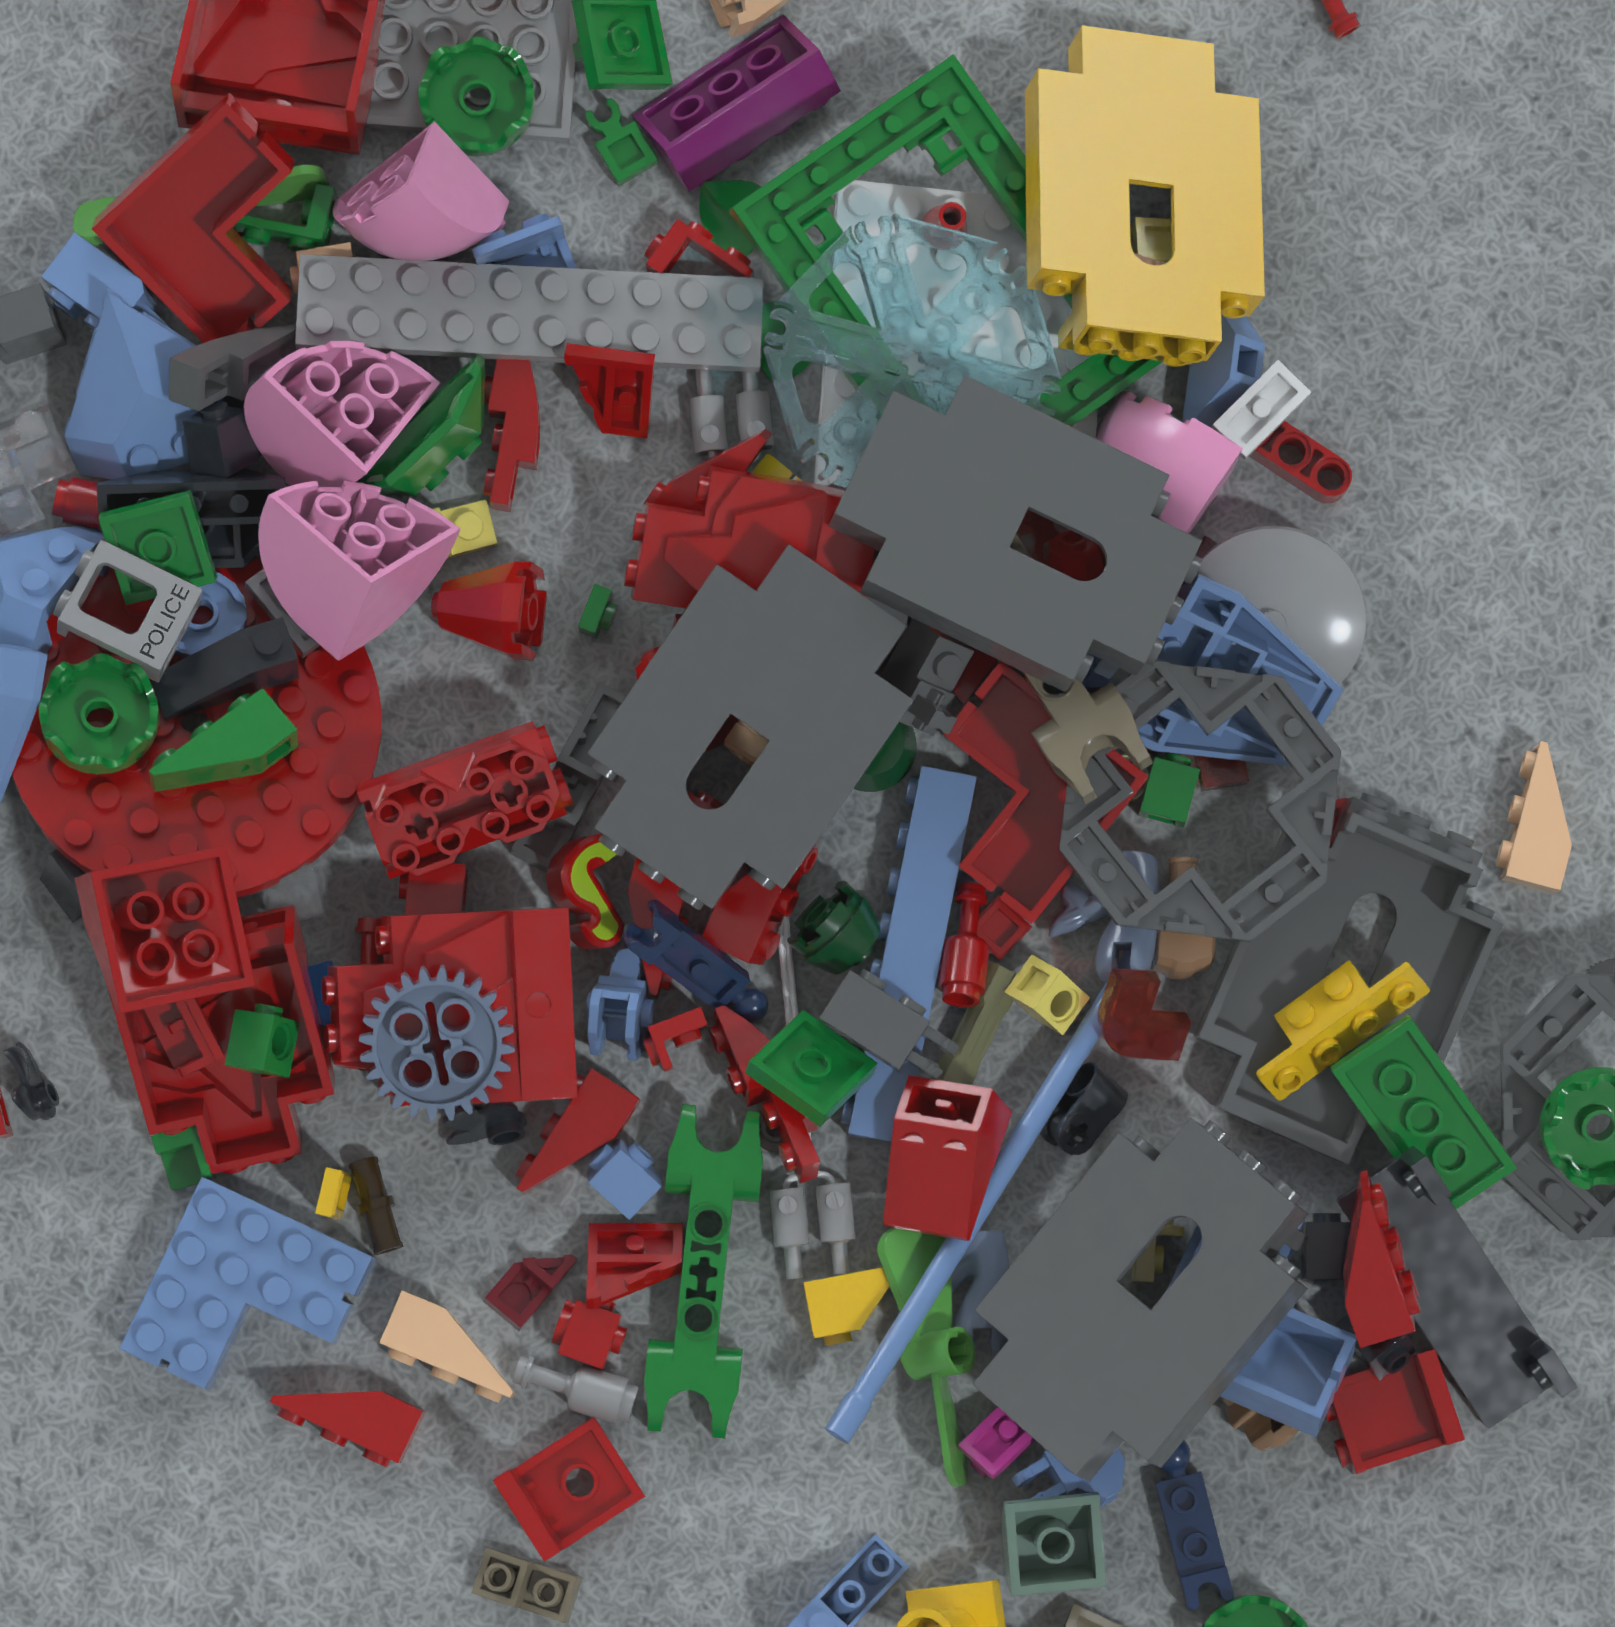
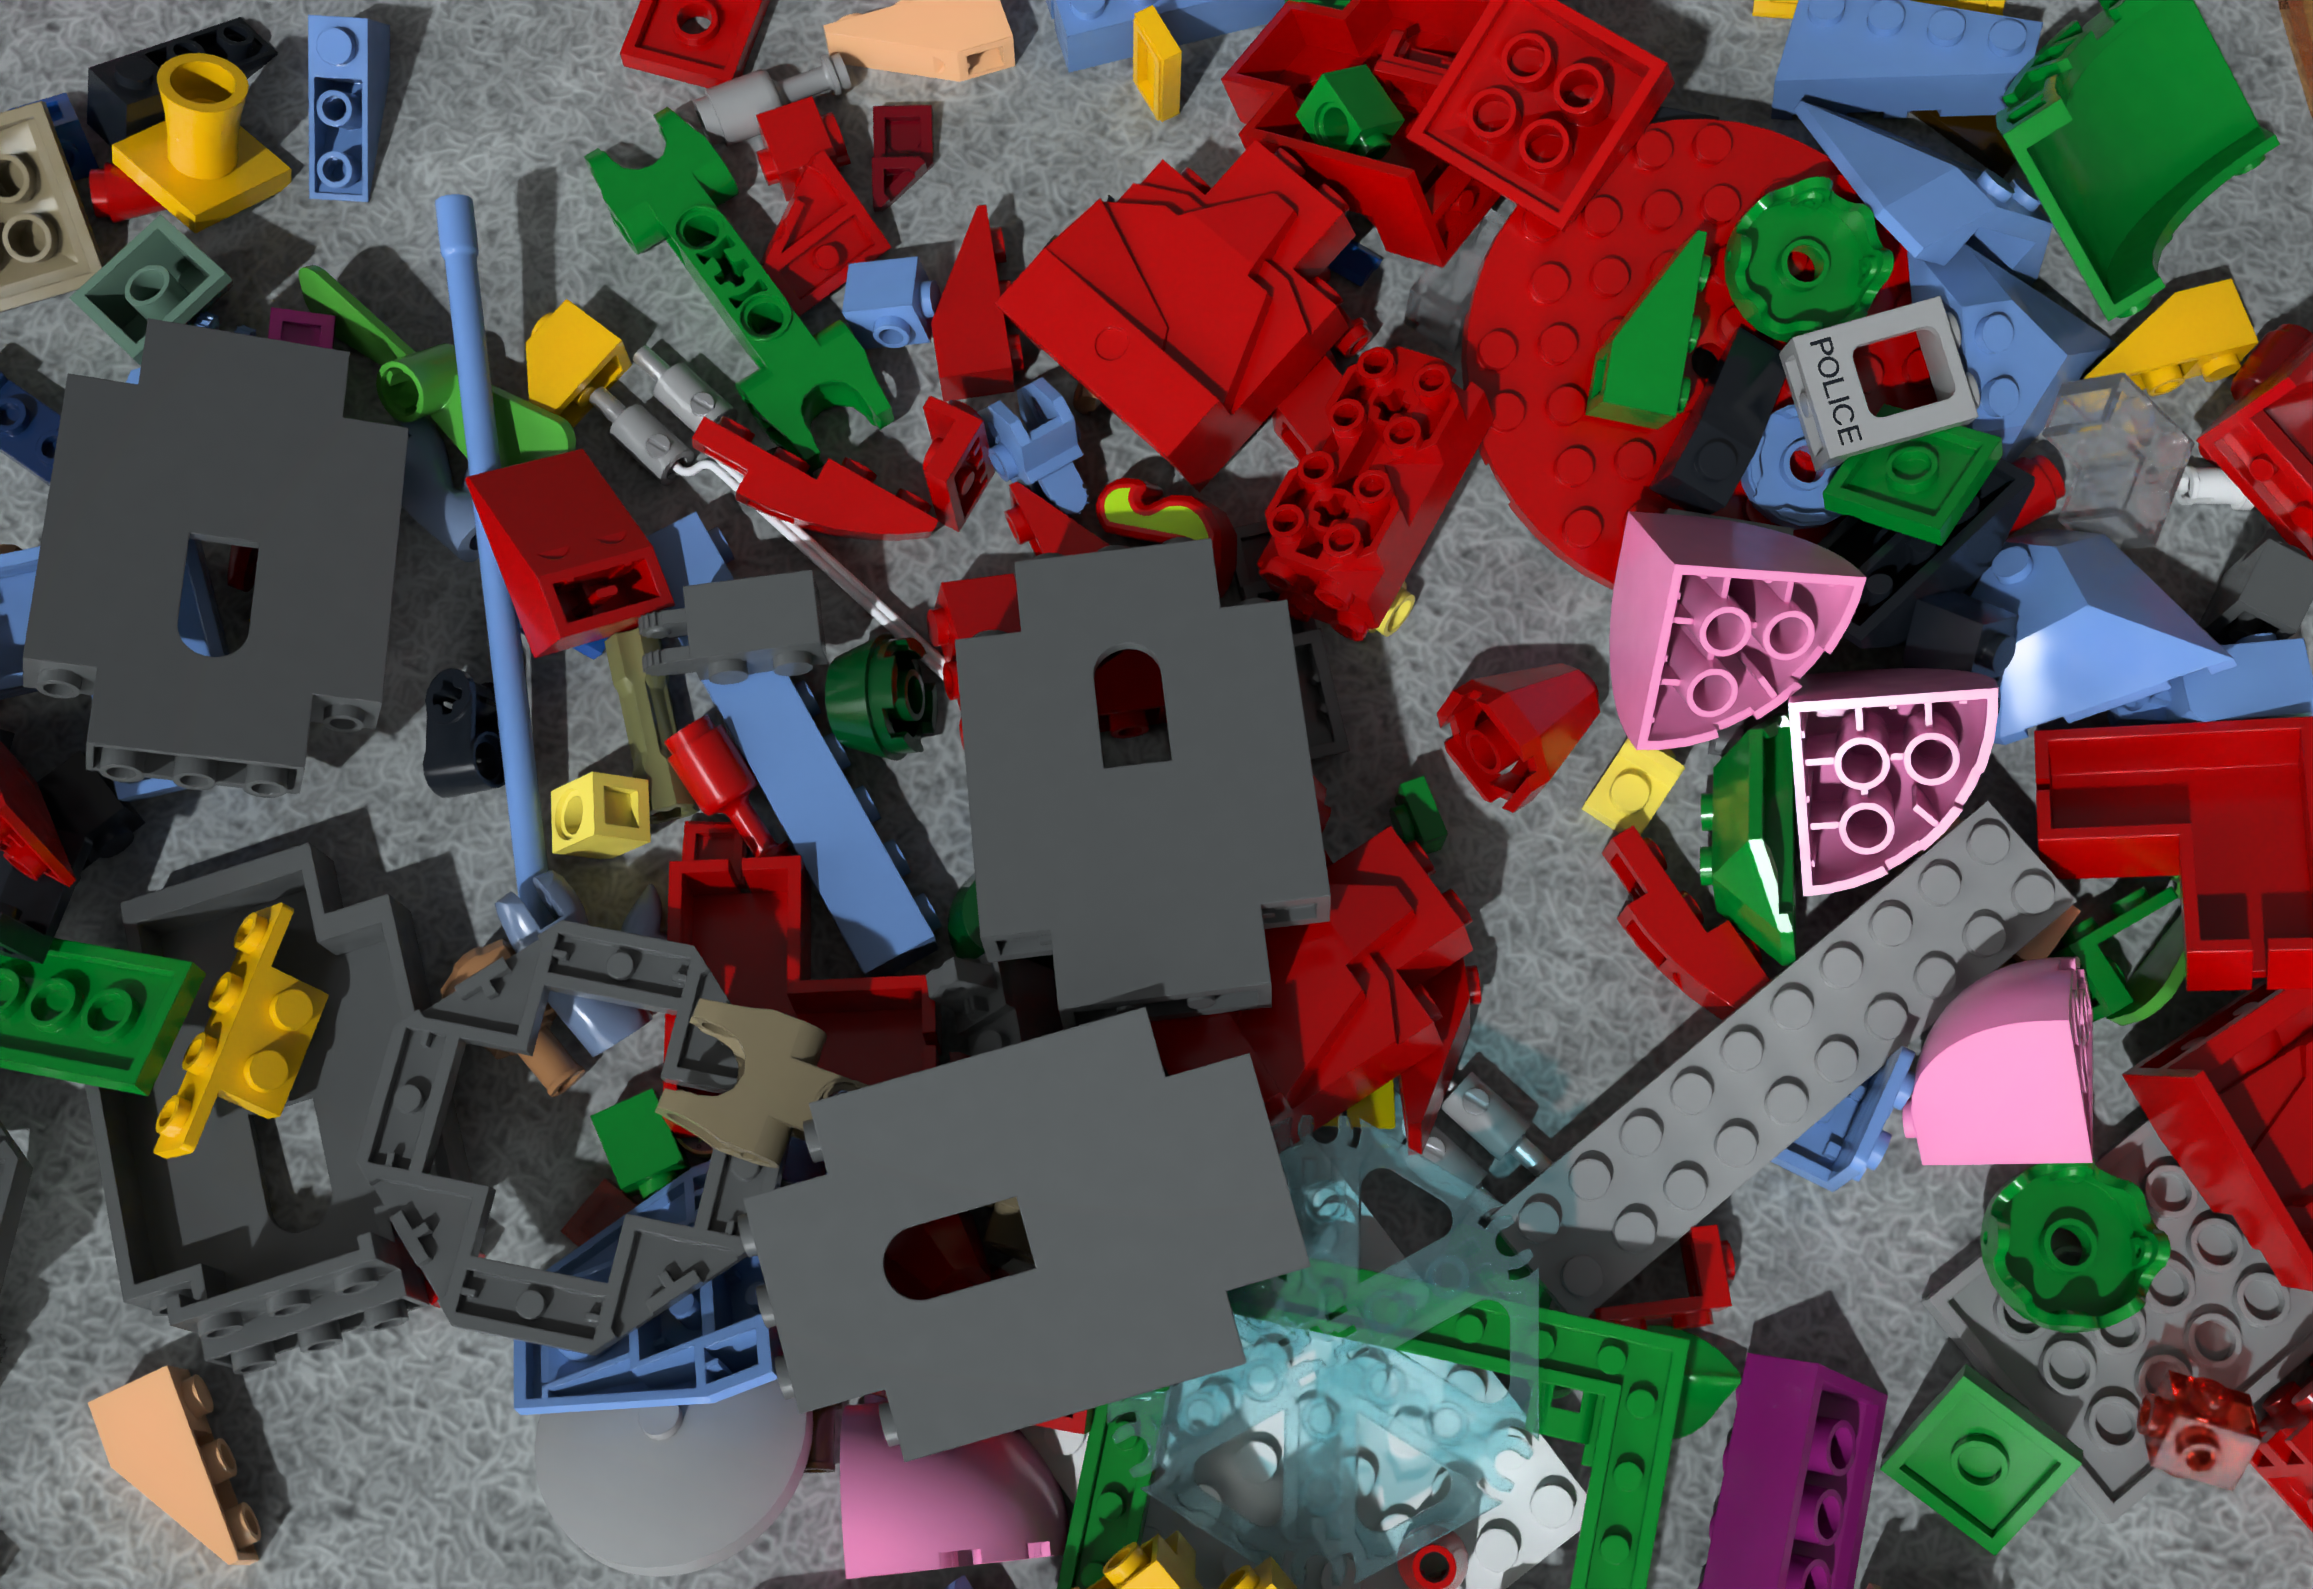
camera: 135 degrees right, 10 degrees down
(227, 365) = (2037, 708): dark grey slope -> none
(375, 1205) = (1110, 105): dark brown pin -> none
(479, 1035) = (1176, 213): sand blue gear -> none
(615, 386) = (1621, 1061): red wing -> none
(622, 148) = (1861, 1345): green plate -> none
(695, 963) = (999, 538): dark blue plate -> none
(811, 1068) = (782, 519): green hinge -> none
(1132, 1025) = (481, 860): clear red plate -> none

